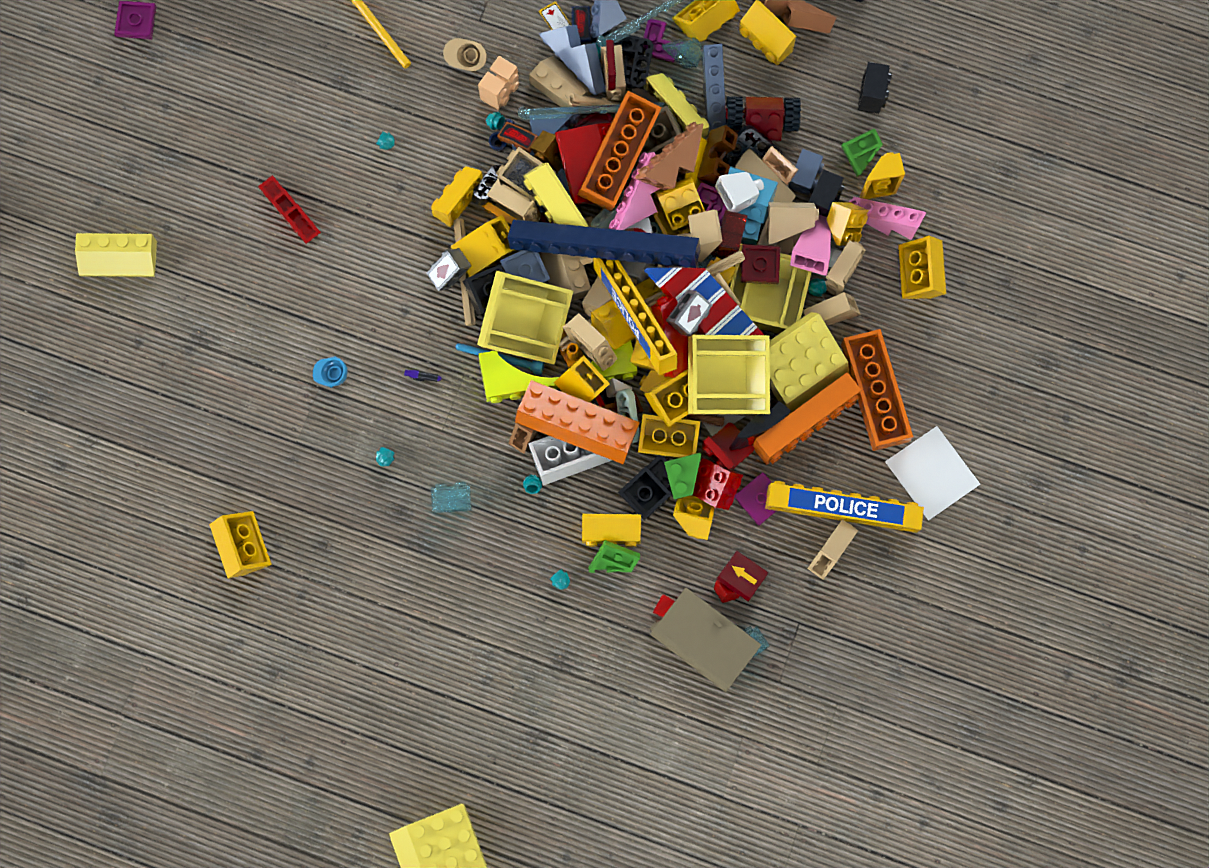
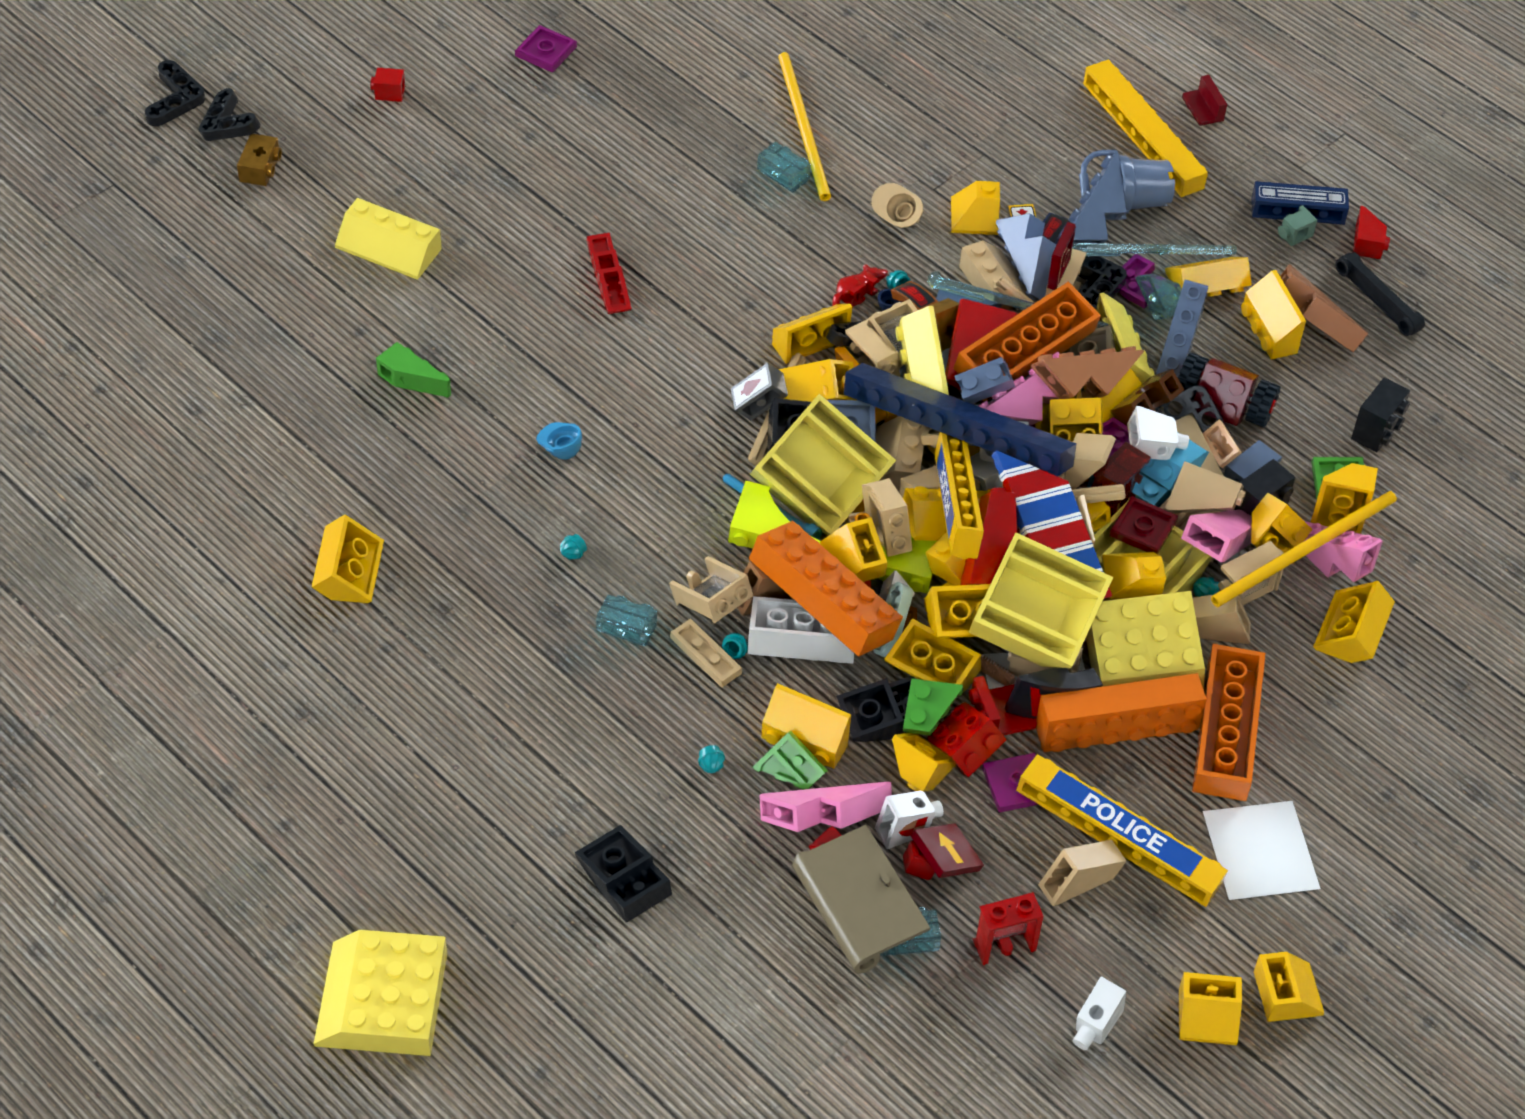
camera: 25 degrees right, 25 degrees down
(37, 110) = (388, 84): none -> red brick
(193, 364) = (408, 371): none -> bright green slope
(365, 52) = (784, 166): none -> clear light blue brick
(386, 141) = (758, 252): teal plate -> none
(421, 376) = (664, 489): piece -> none
(466, 140) = (854, 287): none -> red animal
(496, 89) = (916, 250): light nougat piece -> none
(499, 452) = (717, 593): none -> tan window
(515, 498) = (706, 653): none -> tan plate
(519, 28) = (976, 209): none -> yellow slope
(546, 692) = (624, 873): none -> black slope
(610, 207) = (985, 381): none -> sand blue brick
(655, 579) = (829, 805): none -> bright pink slope
(689, 313) = (1023, 513): brick -> none
(707, 564) = (903, 815): none -> white torso
(771, 308) = (1134, 574): none -> yellow slope
(808, 619) = (1007, 919): none -> red window
(875, 238) = (1303, 549): none -> yellow piece
(888, 643) = (1099, 1013): none -> white torso
(953, 612) = (1210, 1008): none -> yellow slope
(993, 572) = (1287, 987): none -> yellow slope

